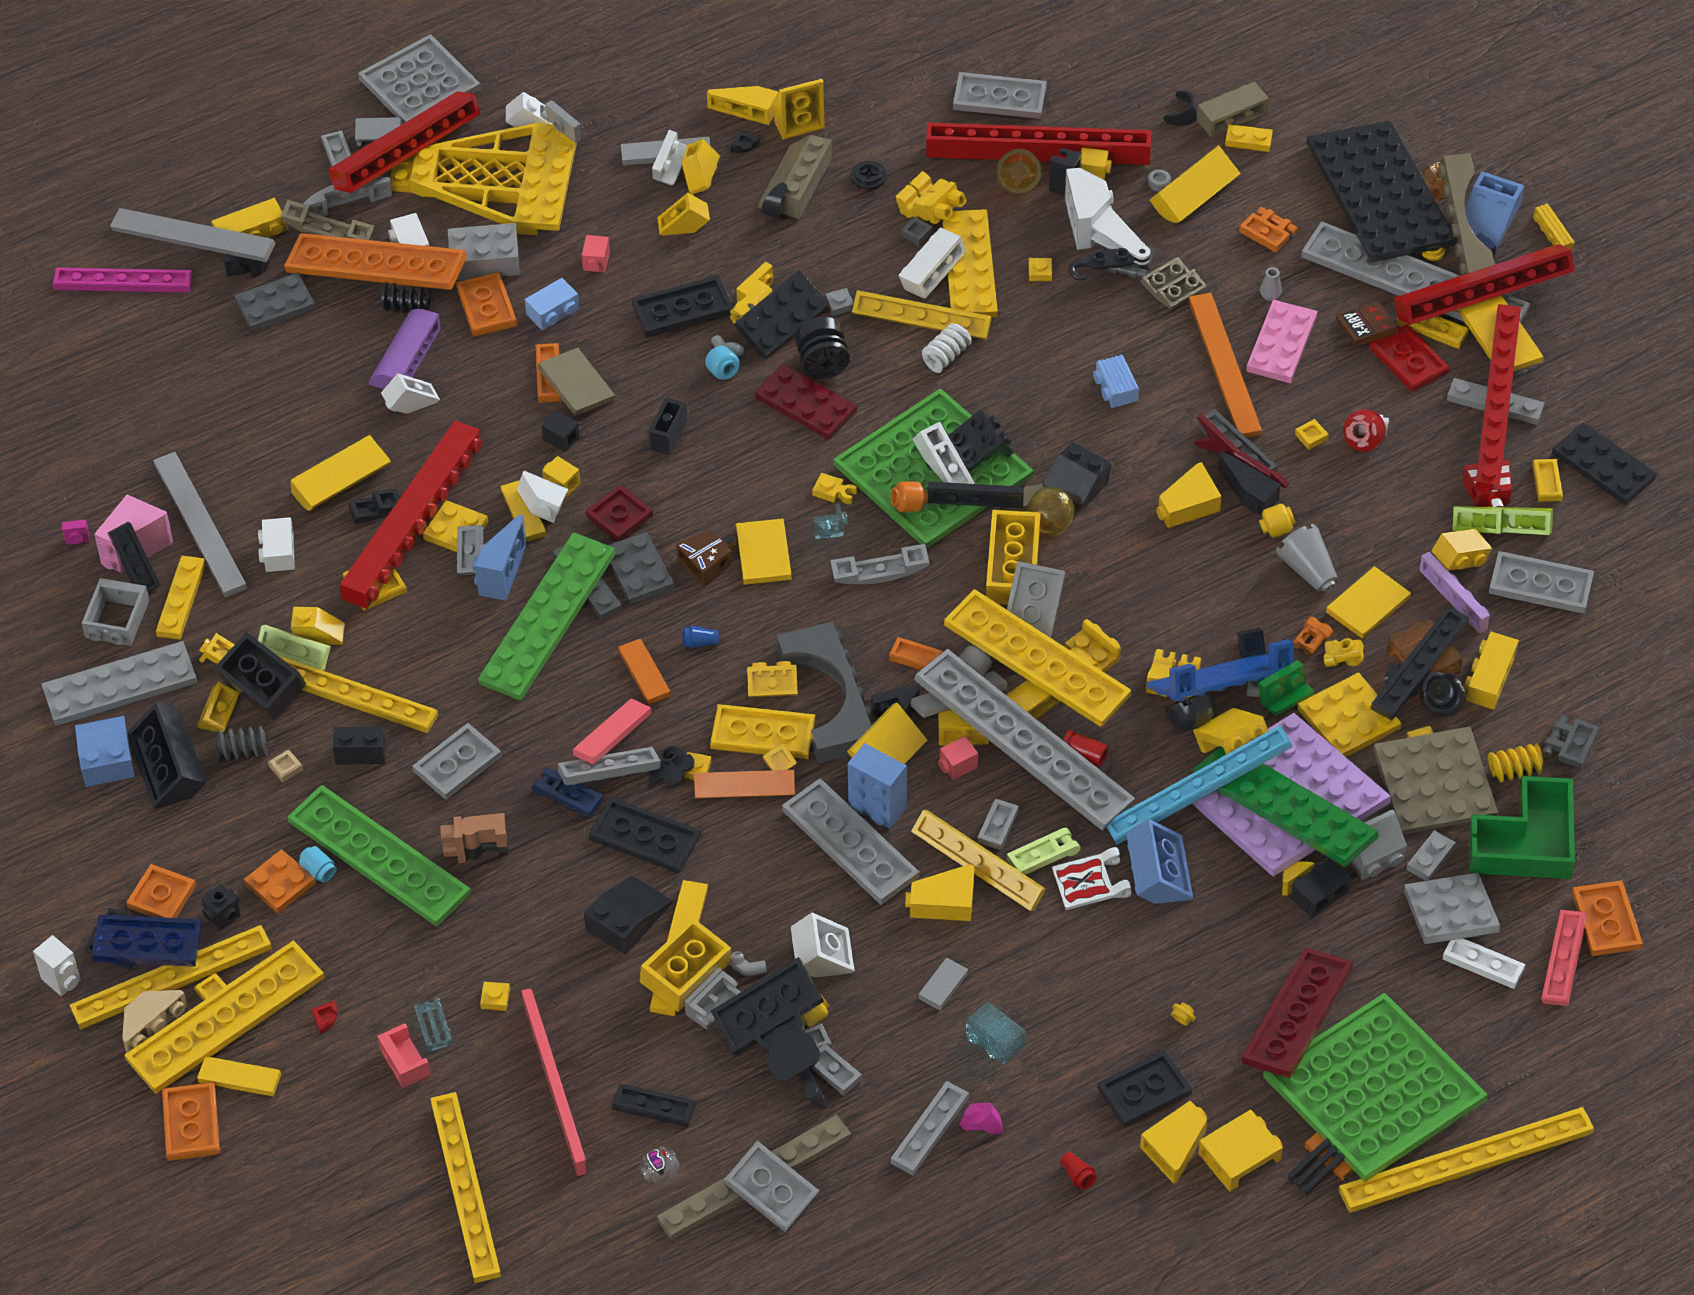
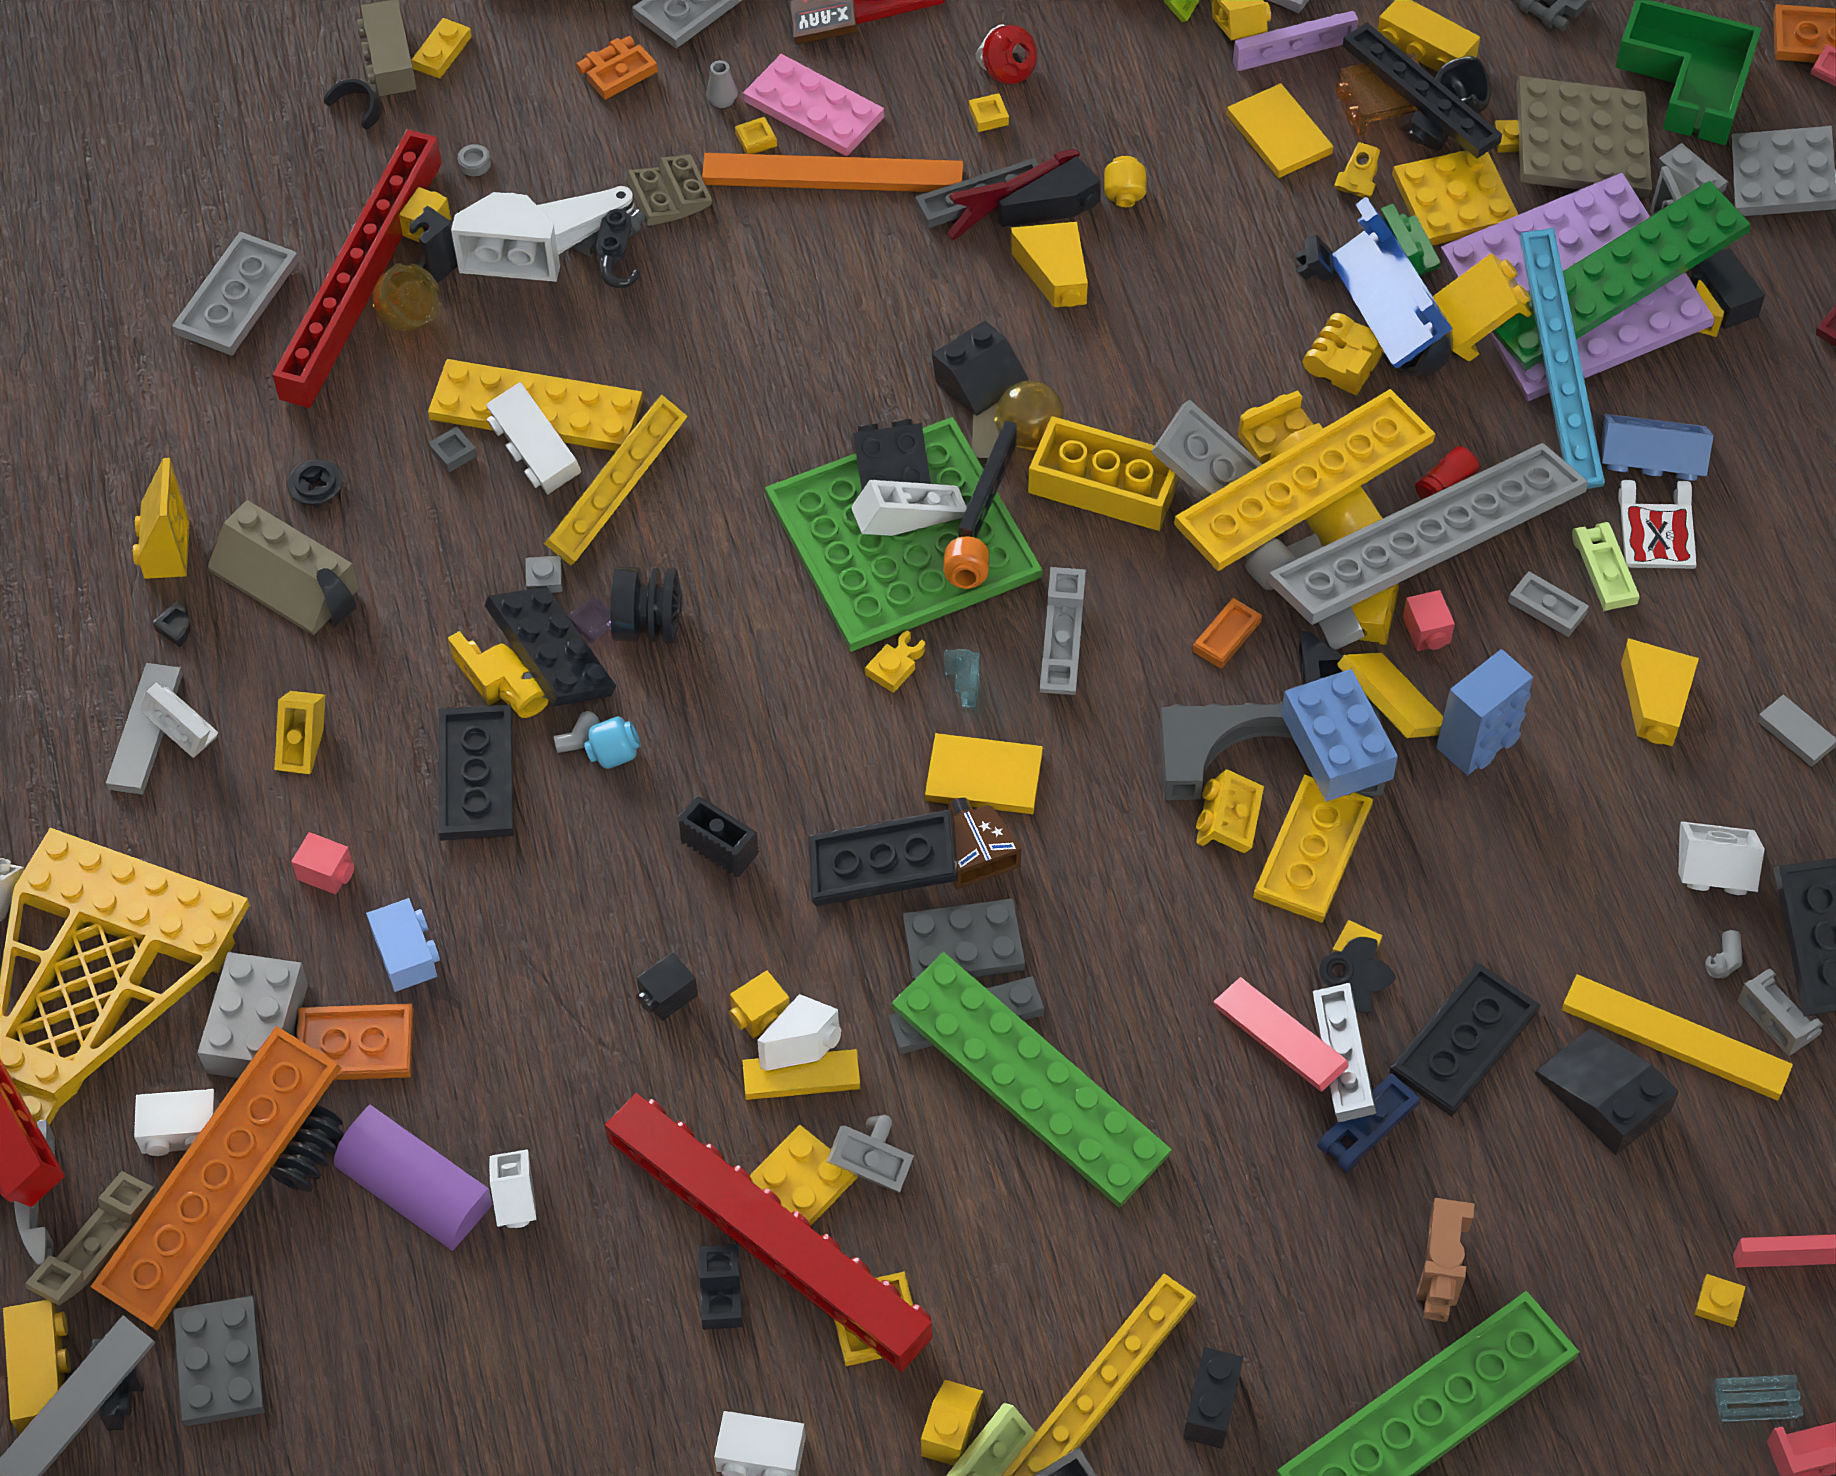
camera: 75 degrees left, 5 degrees up
(339, 473) = (647, 1323): yellow brick -> none
(456, 761) = (1273, 1264): light grey plate -> none
(500, 560) = (922, 1117): medium blue slope -> none
(545, 391) = (532, 983): orange tile -> none
(563, 121) = (48, 836): light grey plate -> none
(576, 381) = (574, 944): dark tan tile -> none
(619, 513) = (855, 941): dark red plate -> none
(644, 671) = (1163, 974): orange tile -> none
(678, 509) = (883, 858): none -> black tile
(684, 963) = (1735, 1024): yellow brick -> none
(698, 637) = (1124, 889): blue cone -> none
(699, 165) = (211, 684): yellow slope -> none
(744, 784) = (1409, 889): orange tile -> none
(745, 102) = (105, 594): yellow slope -> none
(779, 758) = (1378, 834): yellow plate -> none
(806, 401) = (718, 659): dark red plate -> none
(832, 710) = (1339, 735): none -> medium blue brick
(850, 841) = (1538, 782): light grey plate -> none
(929, 200) = (410, 412): yellow hips -> none
(946, 347) = (692, 463): white piece -> none
(985, 863) = (1609, 637): yellow plate -> none
(1040, 269) = (580, 328): yellow plate -> none
(1116, 381) = (825, 289): light blue brick -> none
(1195, 186) = (509, 121): yellow brick -> none
(1241, 317) = (756, 136): none -> yellow tile
(1309, 558) = (1202, 162): light grey cone -> none
(1312, 628) = (1314, 188): orange piece -> none
(1515, 761) = (1579, 50): yellow piece -> none

